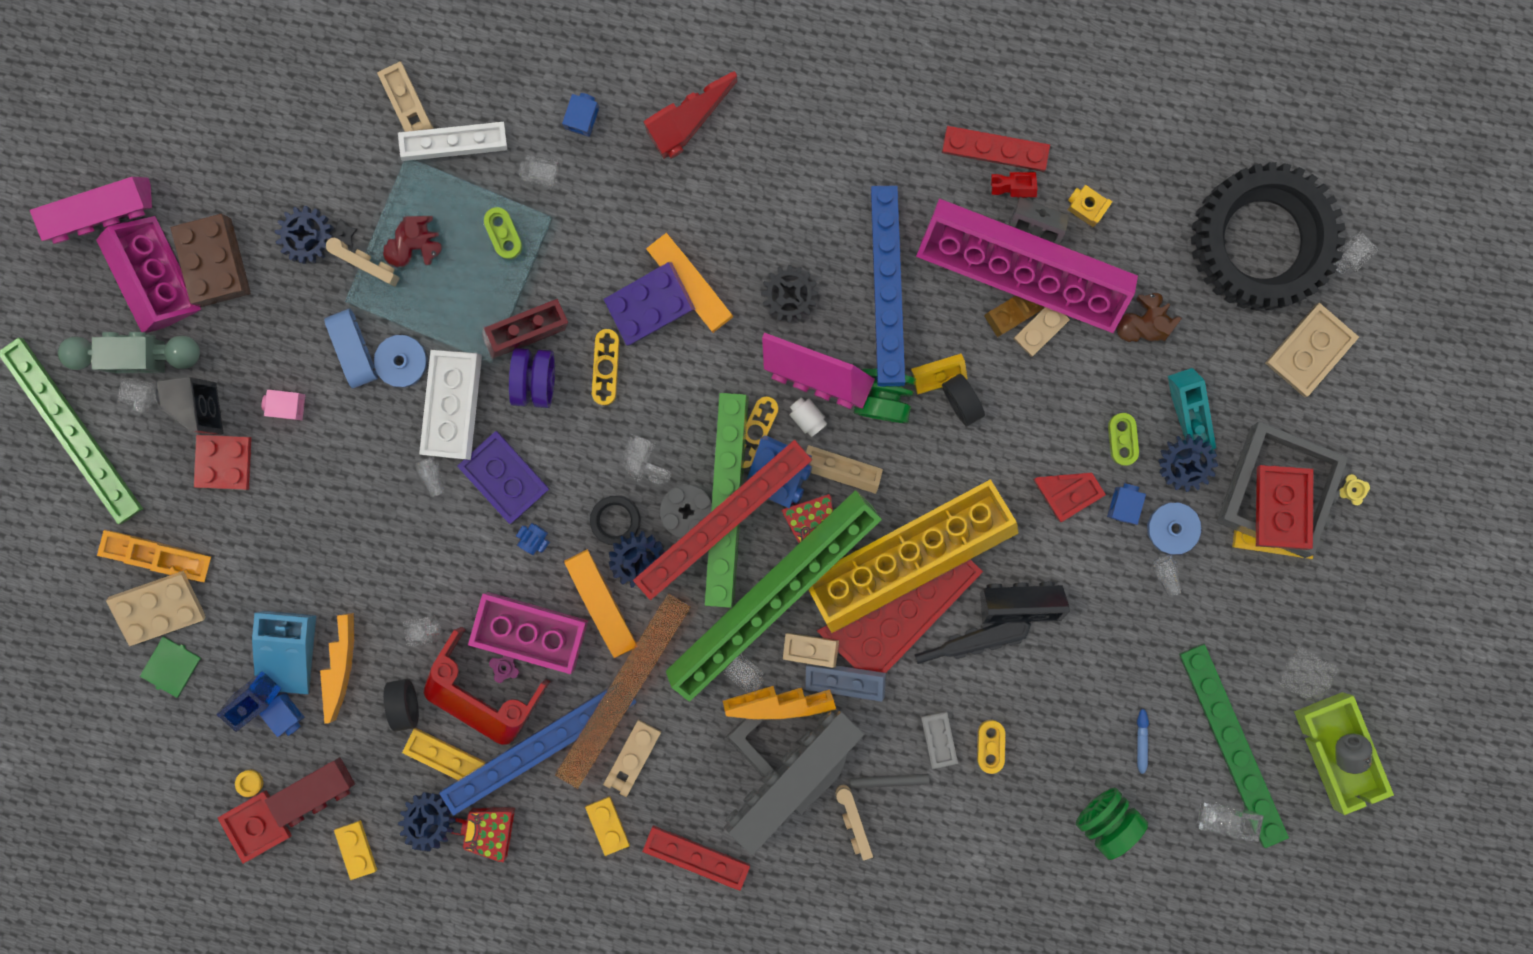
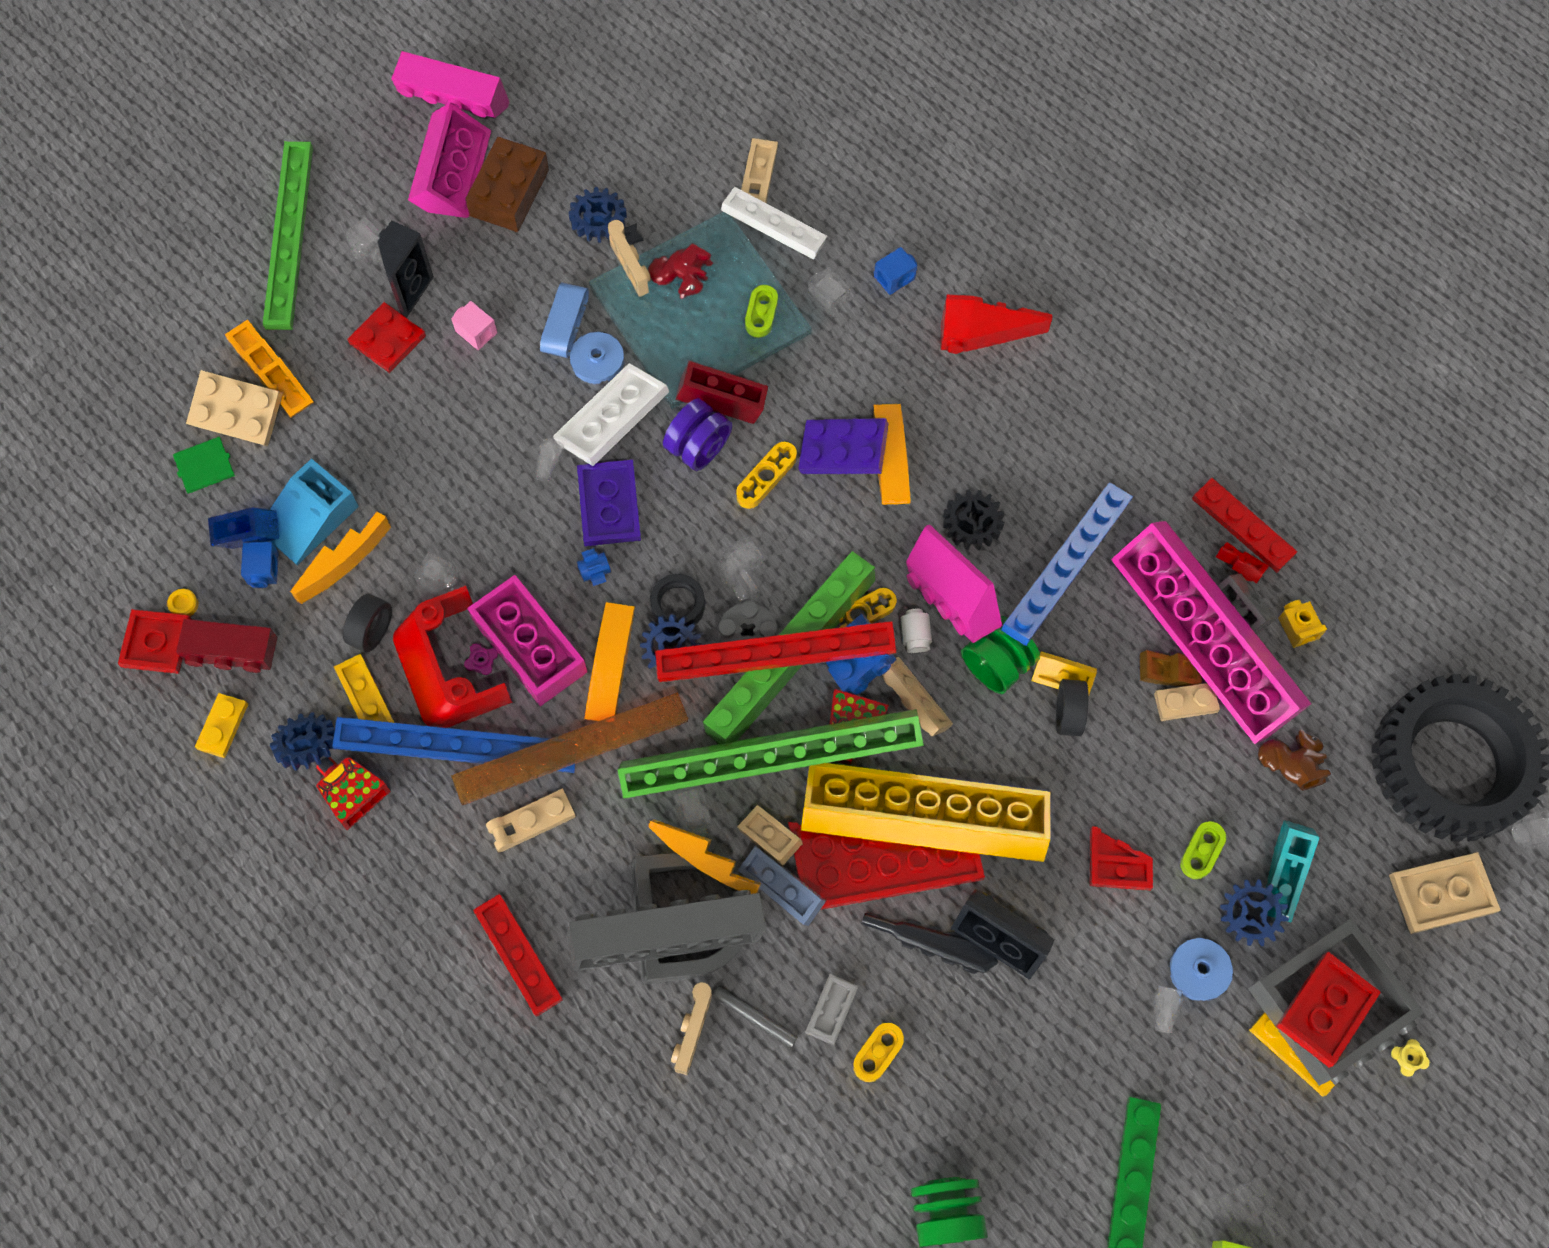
camera: 35 degrees right, 20 degrees down
(128, 353) = (383, 200): sand green brick -> none
(607, 825) = (459, 866): yellow plate -> none
(1126, 504) = (1167, 911): blue brick -> none
(1142, 741) = (1034, 1159): medium blue piece -> none

